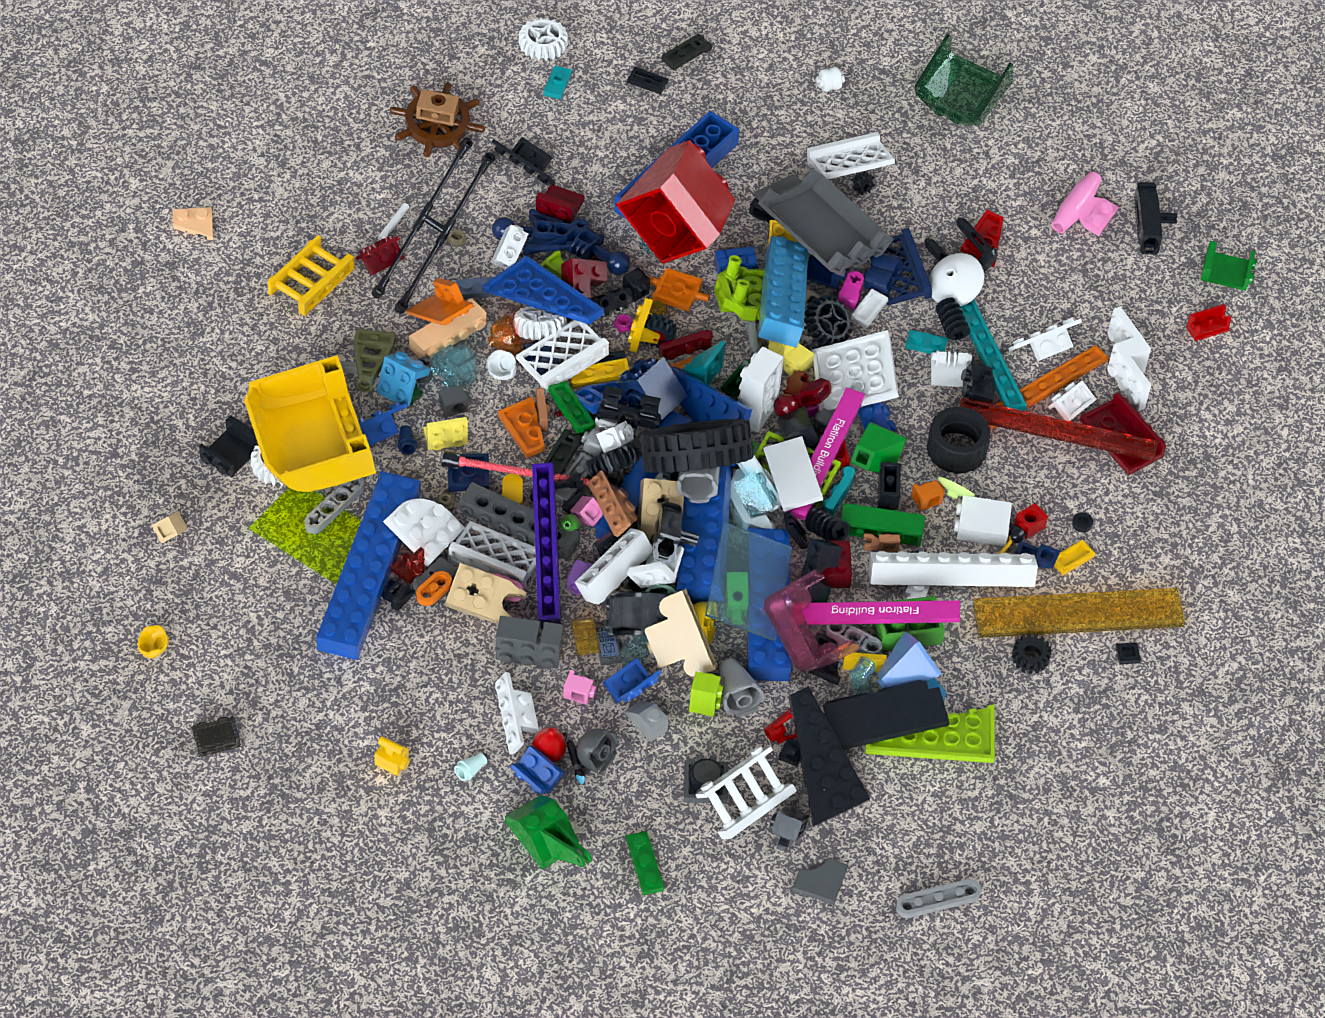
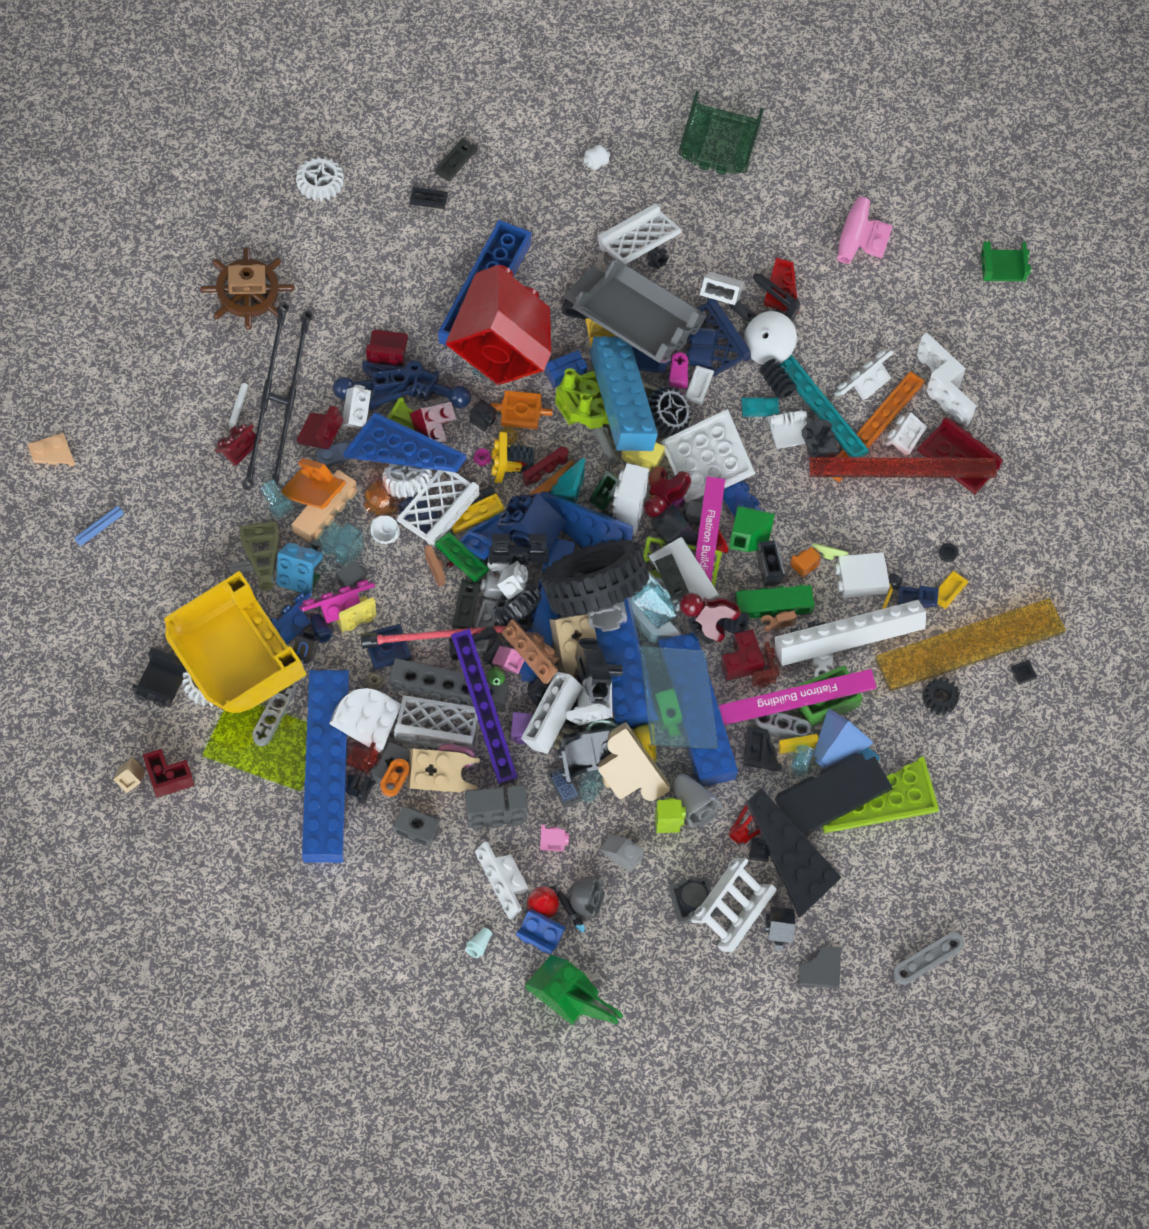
camera: 15 degrees left, 10 degrees up
(152, 641) = (151, 896): yellow hair -> none
(206, 537) = (167, 778): none -> dark red brick
(215, 736) = (239, 976): clear smoke brick -> none
(217, 297) = (98, 525): none -> medium blue axle
(319, 289) = (190, 494): yellow fence -> none
(385, 451) = (306, 646): none -> black brick
(391, 756) = (406, 953): yellow brick -> none
(402, 317) = (278, 503): none -> clear light blue piece
(423, 415) = (335, 603): none -> dark pink bracket
(447, 653) = (425, 834): none -> dark grey brick
(456, 234) = (302, 403): dark tan plate -> none
(468, 259) = (321, 429): none -> dark red bracket
(513, 488) = (432, 653): yellow tile -> none
(523, 426) = (423, 587): orange wing -> none
(529, 156) = (343, 305): black bracket -> none
(557, 82) = (346, 220): teal plate -> none
(585, 636) = (542, 785): clear yellow beam -> none
(614, 299) = (464, 440): black brick -> none
(630, 681) = (599, 820): blue bracket -> none
(644, 863) = (661, 994): green plate -> none
(779, 472) = (672, 578): none -> pearl dark grey plate
(785, 614) = (733, 736): clear pink windscreen -> none
(805, 510) = (708, 612): none -> dark red piece
(820, 556) = (734, 656): black arch -> none
(840, 491) = (726, 578): teal plate -> none
(852, 591) = (766, 677): none -> clear red bracket
(920, 222) = (722, 288): none -> white brick
(952, 457) = (813, 519): black tyre -> none
(1031, 520) = (906, 558): red brick -> none
(1149, 217) = (923, 230): black piece -> none
(1208, 322) = (1003, 324): red hinge -> none

